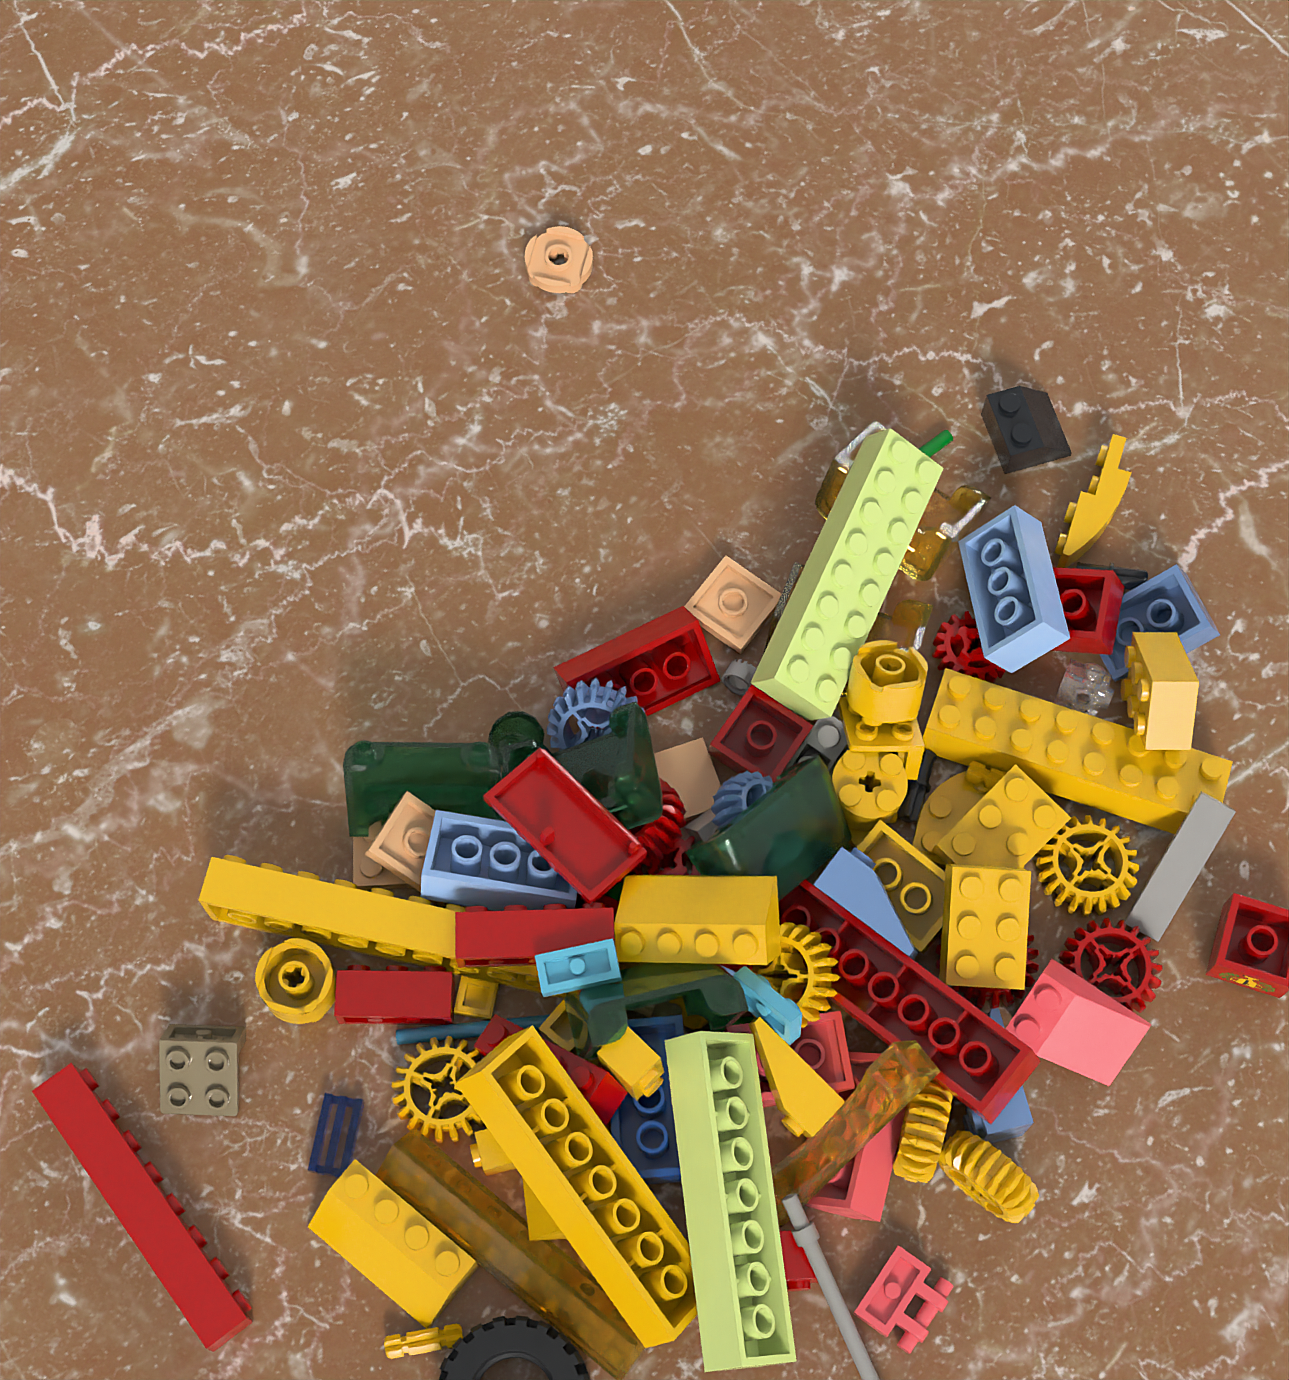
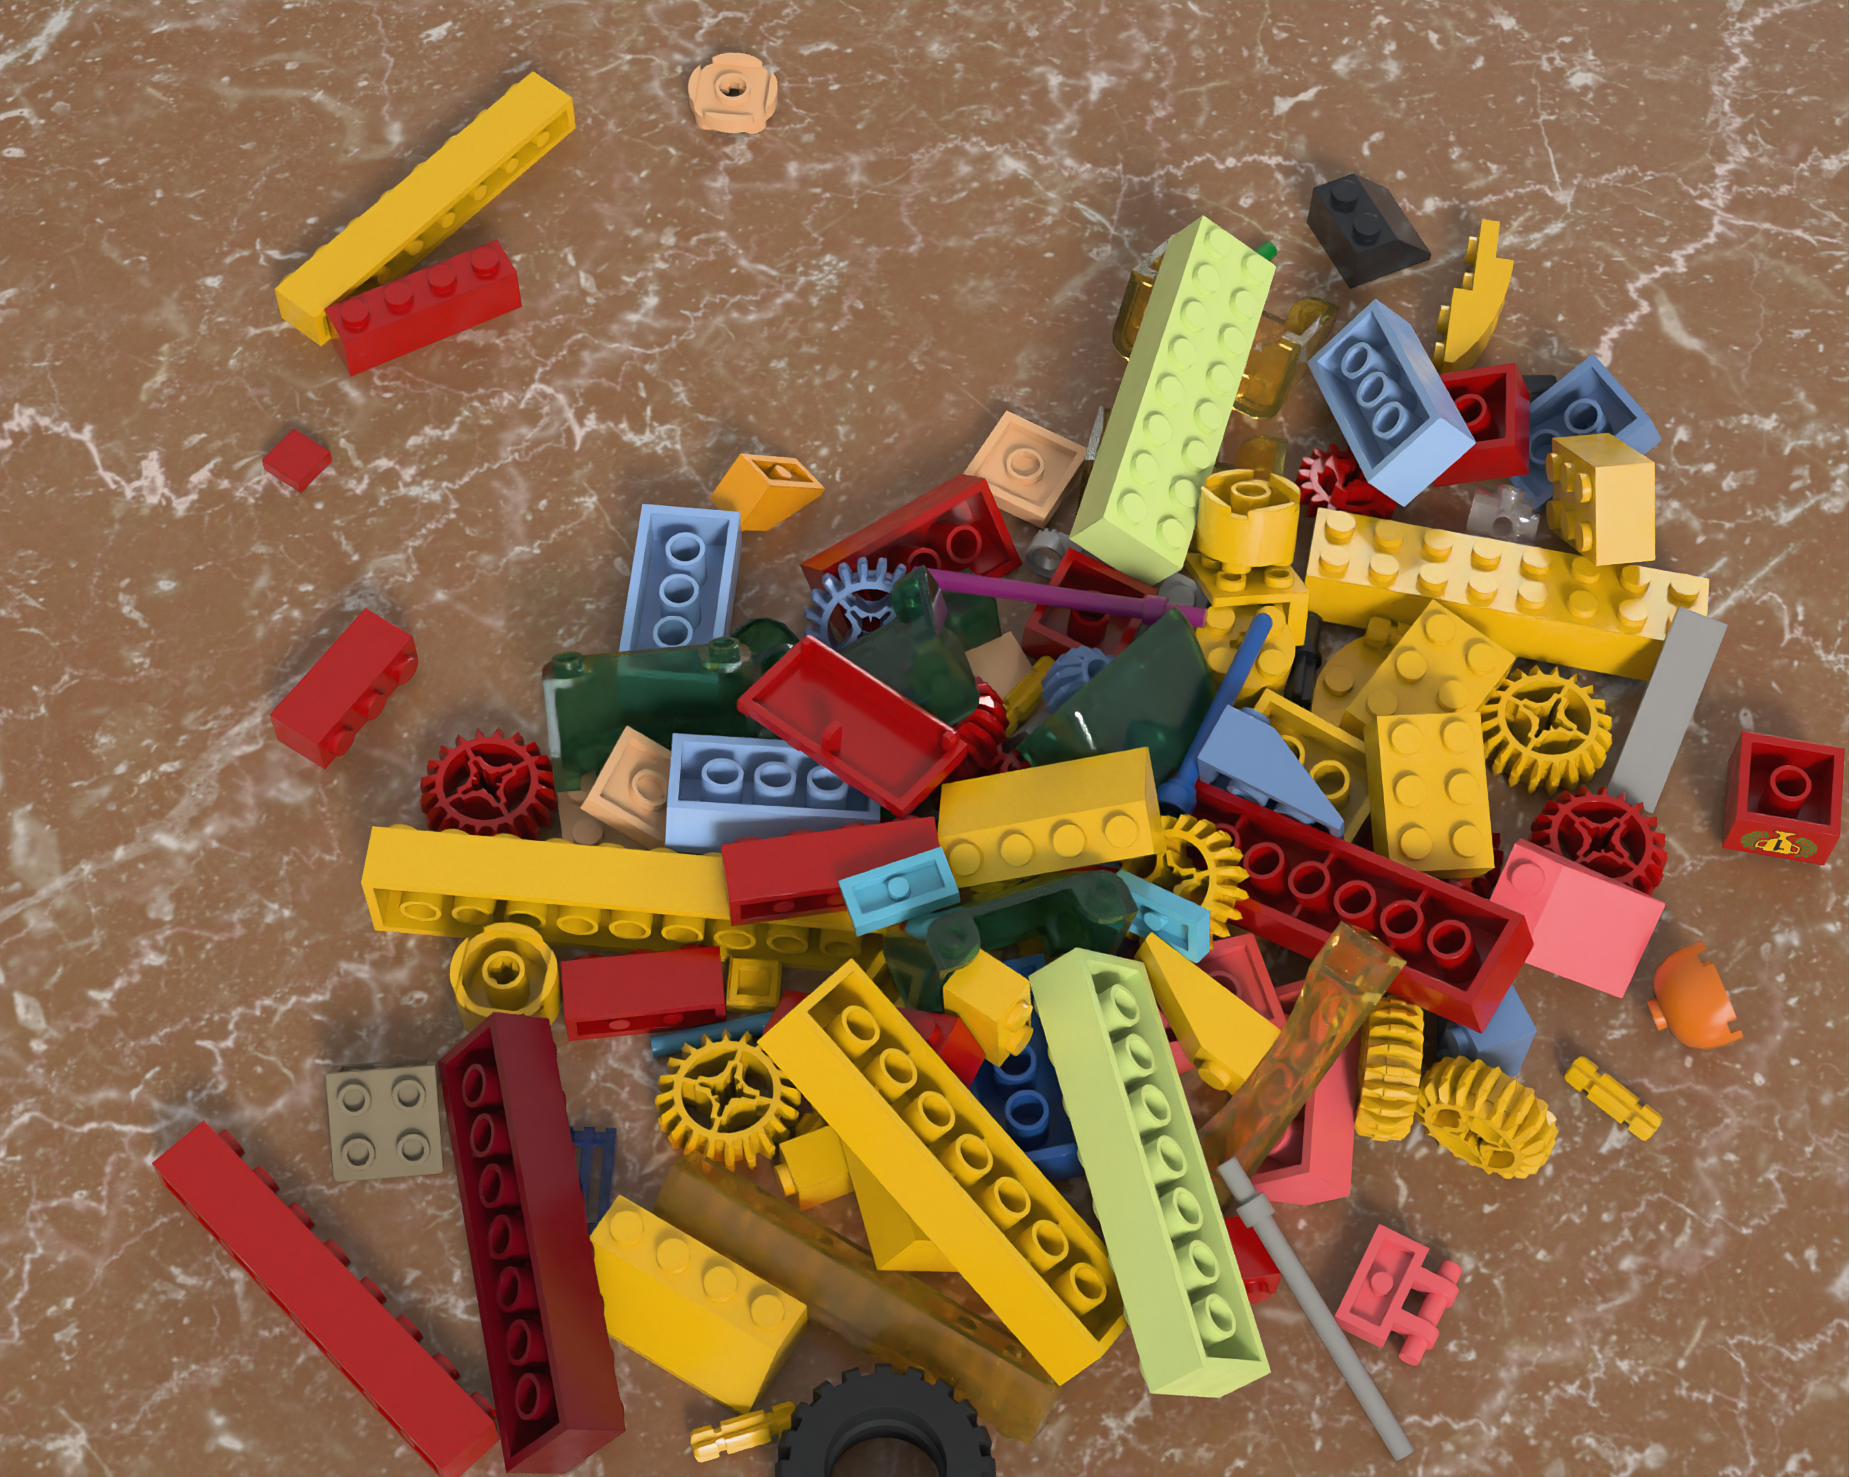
camera: 10 degrees left, 10 degrees down
(198, 536) = (297, 460): none -> red tile
(211, 729) = (345, 689): none -> red brick
(287, 1188) = (530, 1246): none -> dark red brick
(290, 830) = (505, 772): none -> red gear
(304, 421) = (423, 307): none -> red brick
(316, 335) = (428, 203): none -> yellow brick
(462, 680) = (682, 577): none -> light blue brick
(537, 602) = (765, 490): none -> light orange slope
(669, 719) = (973, 617): none -> clear green brick
(703, 795) = (1026, 694): none -> yellow axle
(799, 901) = (1178, 793): none -> blue piece
(803, 747) = (1147, 609): none -> magenta bar
(1088, 1165) = (1613, 1098): none -> yellow axle
(1159, 1100) = (1692, 1000): none -> orange cylinder

